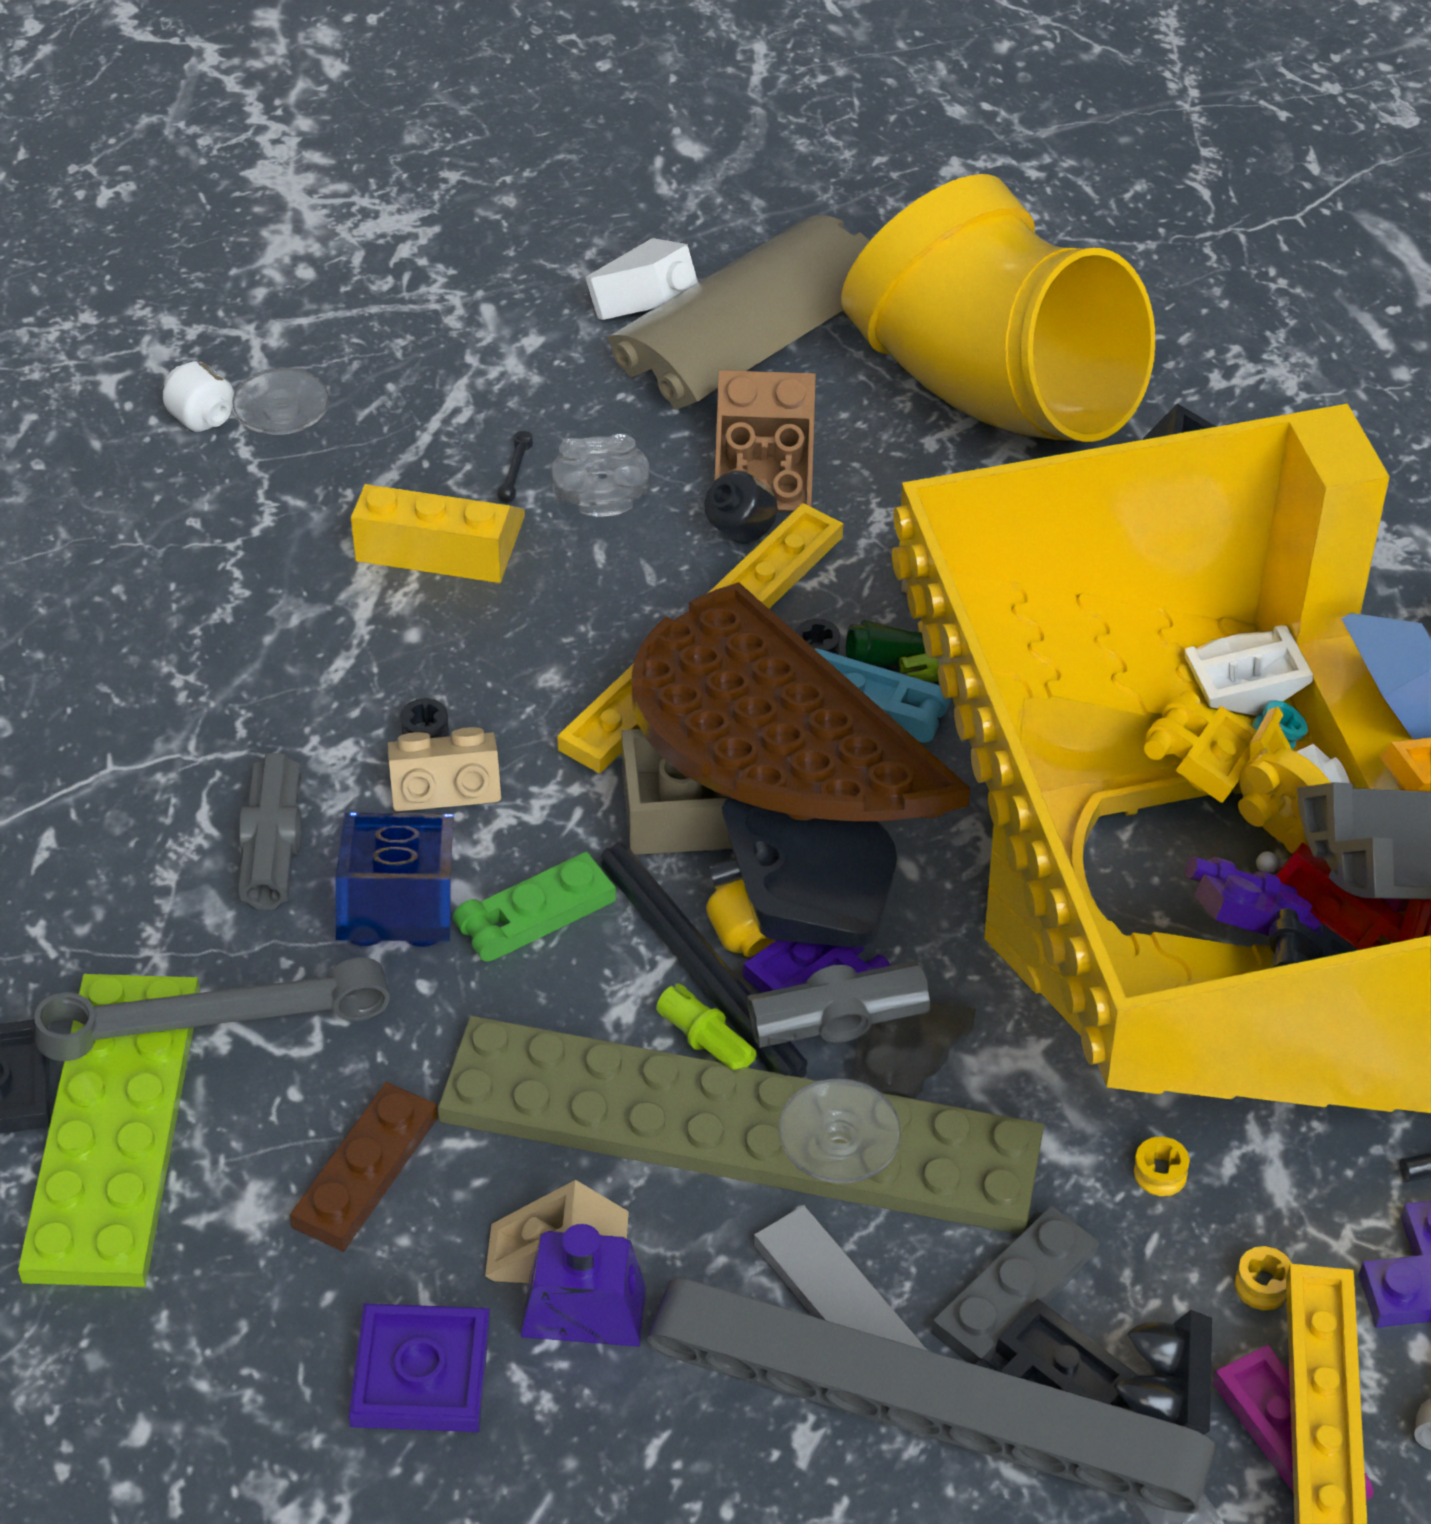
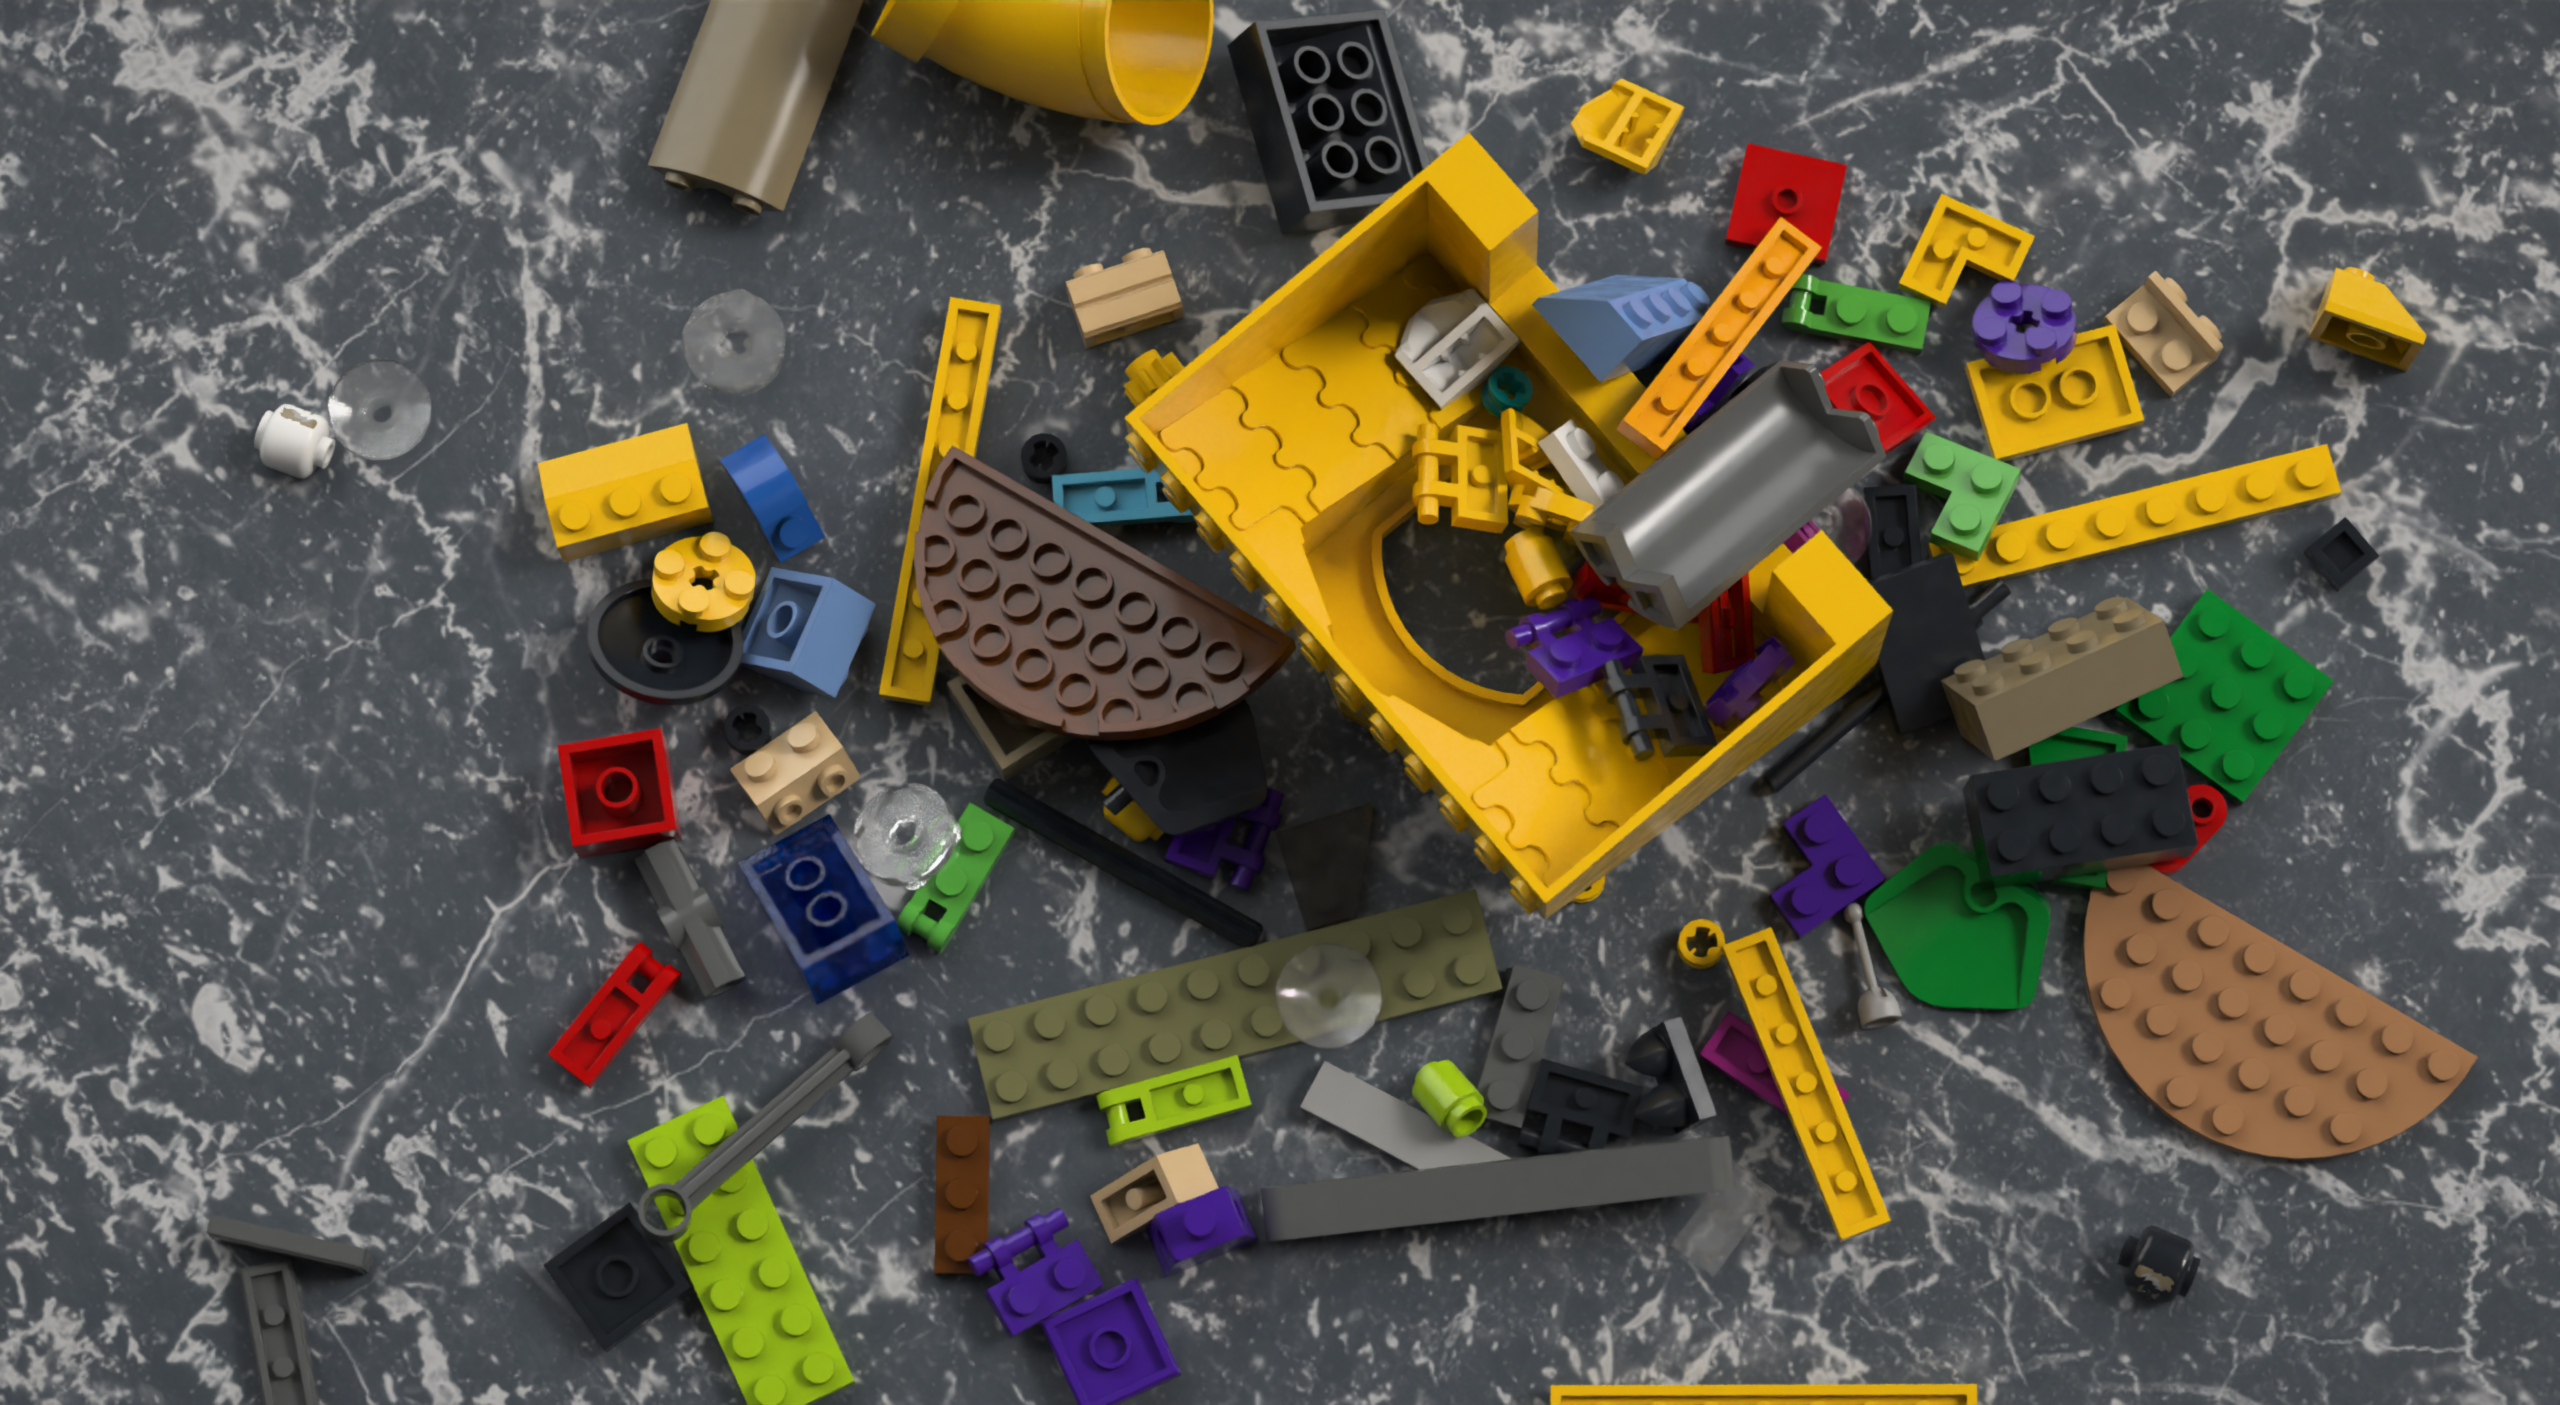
camera: 25 degrees left, 30 degrees up
(148, 874) = (613, 1016): none -> red plate
(276, 704) = (619, 793): none -> red brick
(387, 1273) = (1042, 1288): none -> dark purple plate
(393, 622) = (654, 657): none -> black dish
(458, 601) = (708, 558): none -> yellow plate
(510, 846) = (924, 854): none -> clear plate
(522, 441) = (634, 331): black hinge -> none
(526, 672) = (805, 631): none -> medium blue slope
(560, 574) = (773, 497): none -> blue brick
(632, 1171) = (1175, 1100): none -> lime plate
(641, 278) = (638, 61): white slope -> none
(705, 1027) = (1165, 934): lime axle -> none
(740, 506) = (897, 334): black head -> none
(768, 431) = (874, 233): medium nougat slope -> none
(838, 1003) = (1267, 871): dark grey piece -> none
(881, 643) = (1100, 439): dark green cone -> none
(917, 1288) = (1449, 1098): none -> lime brick
(1246, 834) = (1537, 568): none -> yellow brick

